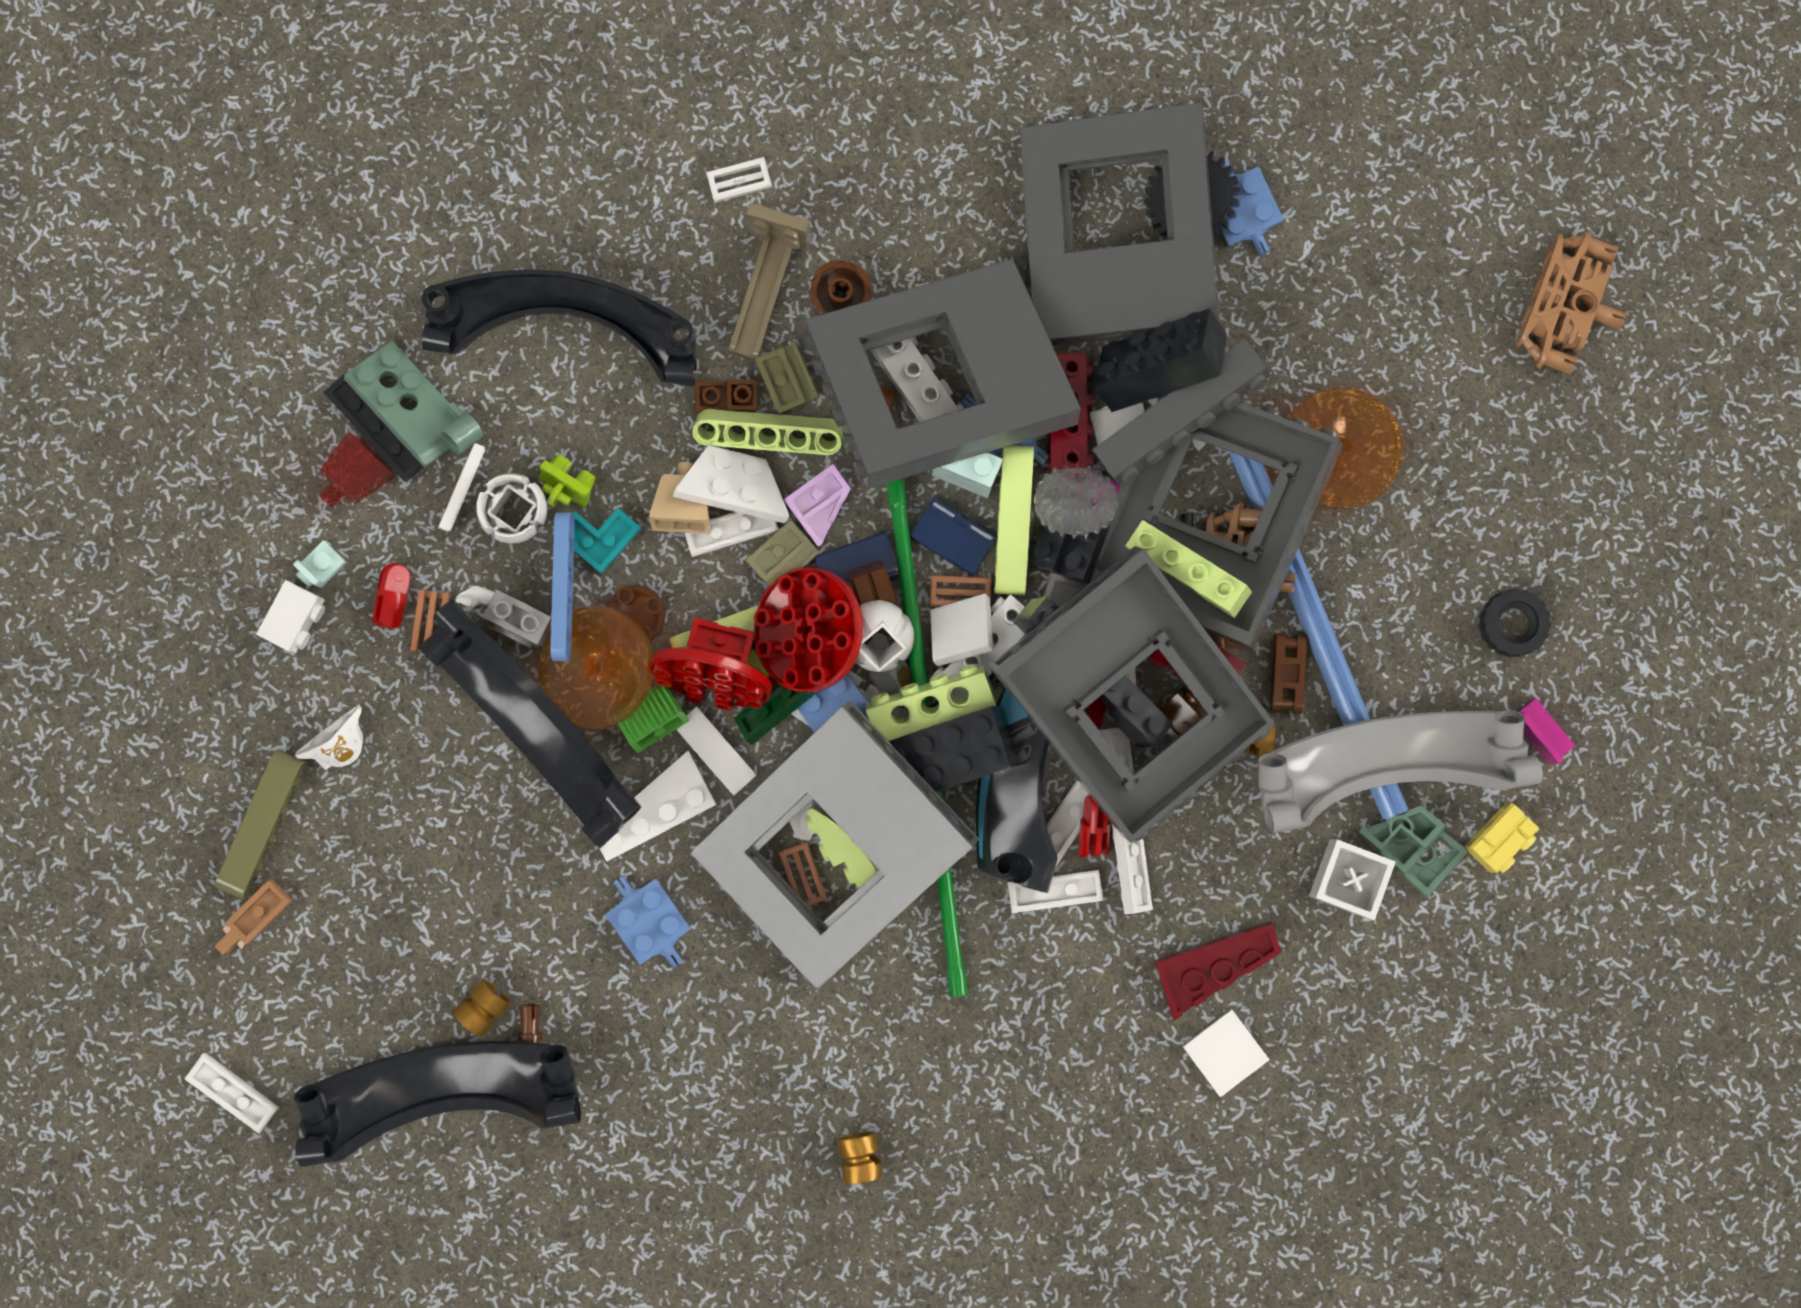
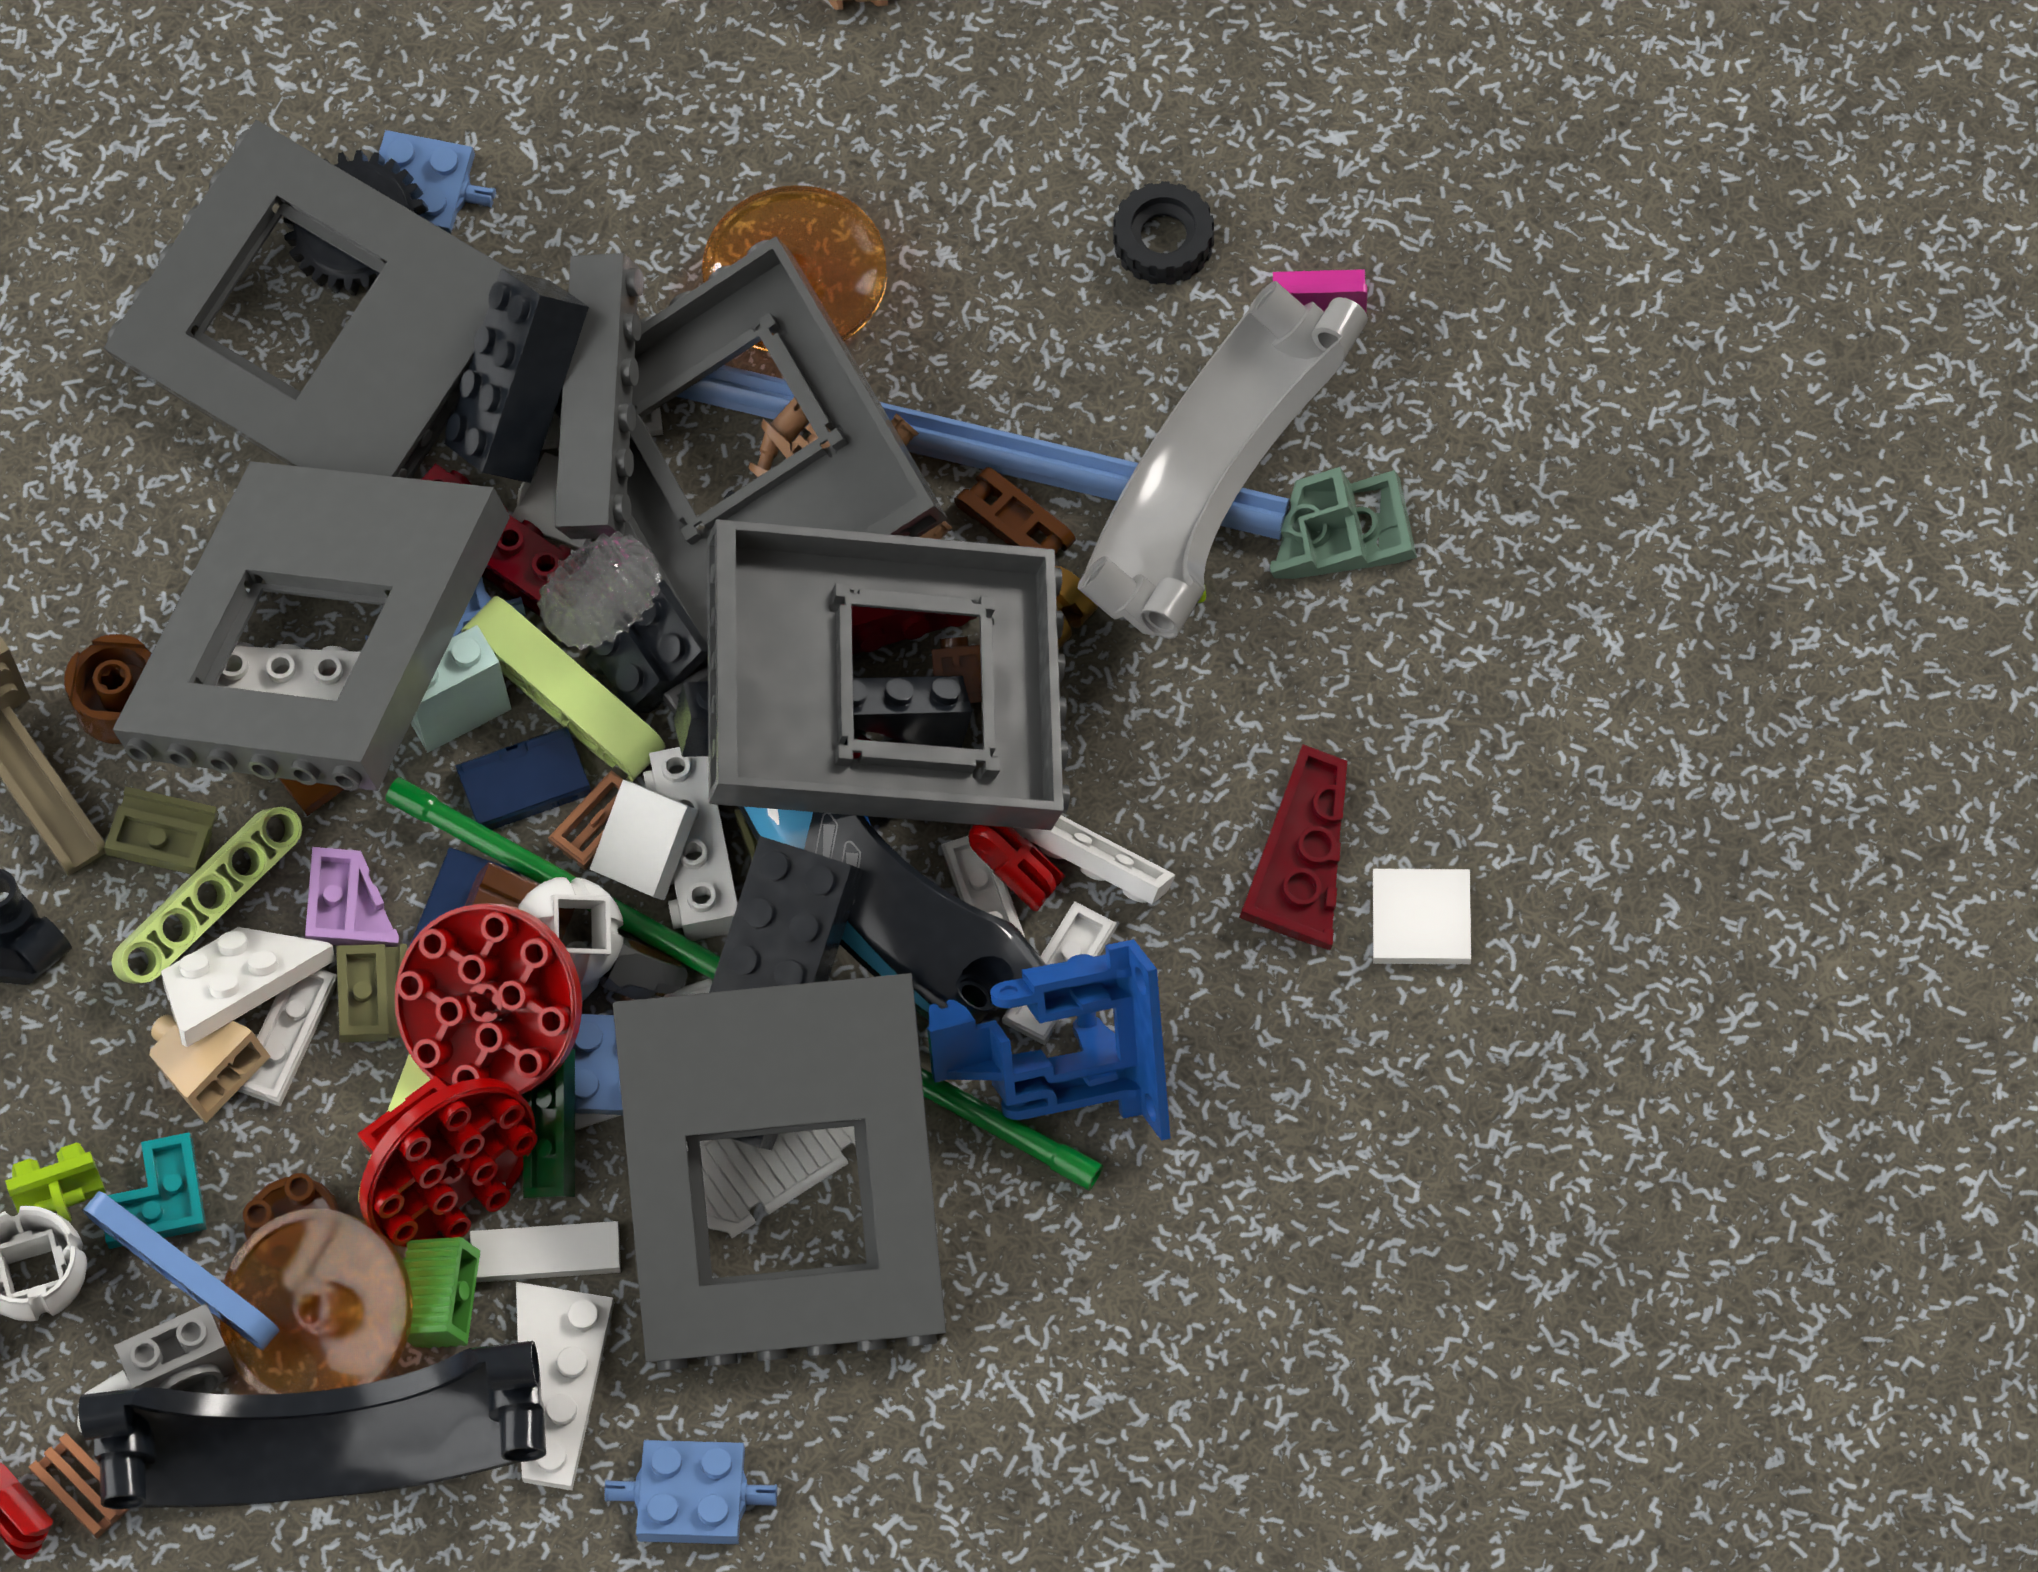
camera: 45 degrees left, 20 degrees down
(728, 395) = (121, 913): reddish brown slope -> none
(794, 851) = (757, 1230): nougat tile -> none
(839, 847) = (790, 1176): yellowish green slope -> none
(860, 1158) = (1199, 1438): pearl gold wheel -> none
(970, 677) = (717, 853): yellowish green brick -> none
(1043, 948) = (1110, 1064): none -> blue container
(1191, 569) = (811, 497): yellowish green brick -> none
(1352, 879) = (1320, 616): white brick -> none
(1502, 838) = (1409, 422): light yellow brick -> none

